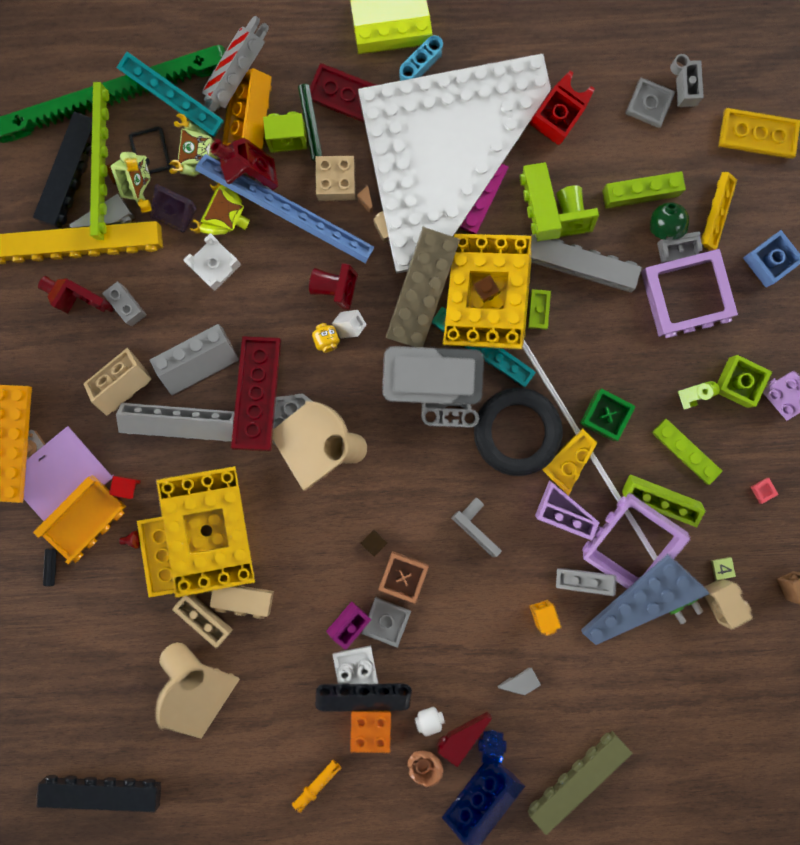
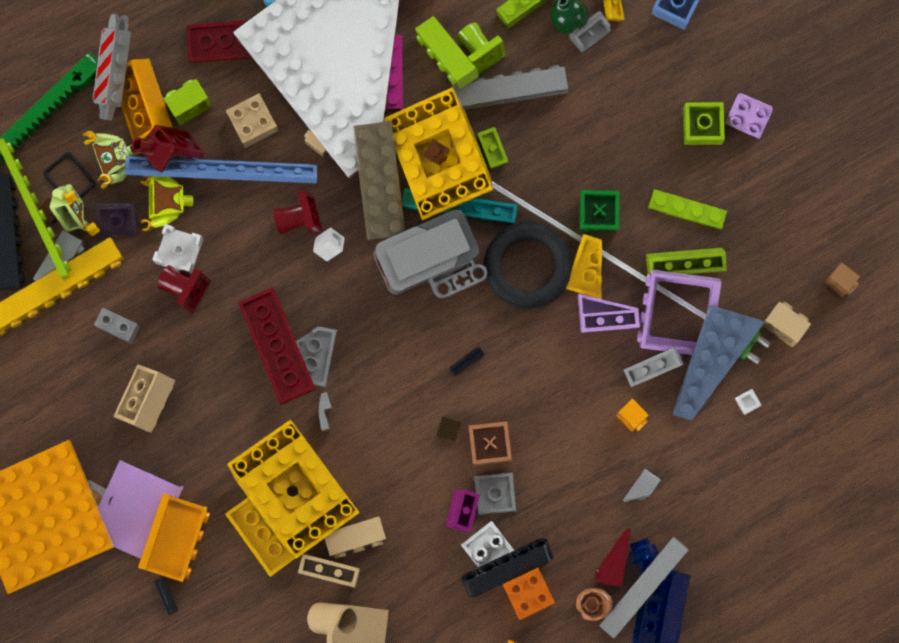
camera: 25 degrees left, 5 degrees down
(65, 292) = (57, 340): dark red plate -> none
(123, 487) = (198, 489): red panel -> none
(131, 540) = (229, 533): dark red rock -> none
(170, 94) = (67, 118): teal plate -> none
(175, 422) = (217, 407): light grey brick -> none
(194, 359) = (205, 344): light grey slope -> none
(204, 303) = (187, 288): none -> dark red plant
(273, 467) = (324, 405): none -> light grey slope
(310, 122) = (204, 82): dark green axle -> none
(316, 443) = (353, 361): tan piece -> none
(325, 337) = (314, 266): yellow head -> none
(365, 199) = (288, 127): medium nougat slope -> none
(420, 490) = (466, 361): none -> black axle
(429, 721) = (577, 560): white head -> none
(464, 521) = (519, 368): light grey piece -> none
(478, 778) = (644, 587): none -> light grey tile
(578, 782) = (737, 548): olive brick -> none
(654, 653) = (748, 401): none -> white tile
(657, 301) = (591, 87): lavender piece -> none
(702, 391) = (665, 156): lime leg -> none
(723, 568) = (771, 296): yellowish green tile -> none
(764, 490) = (773, 210): coral tile -> none

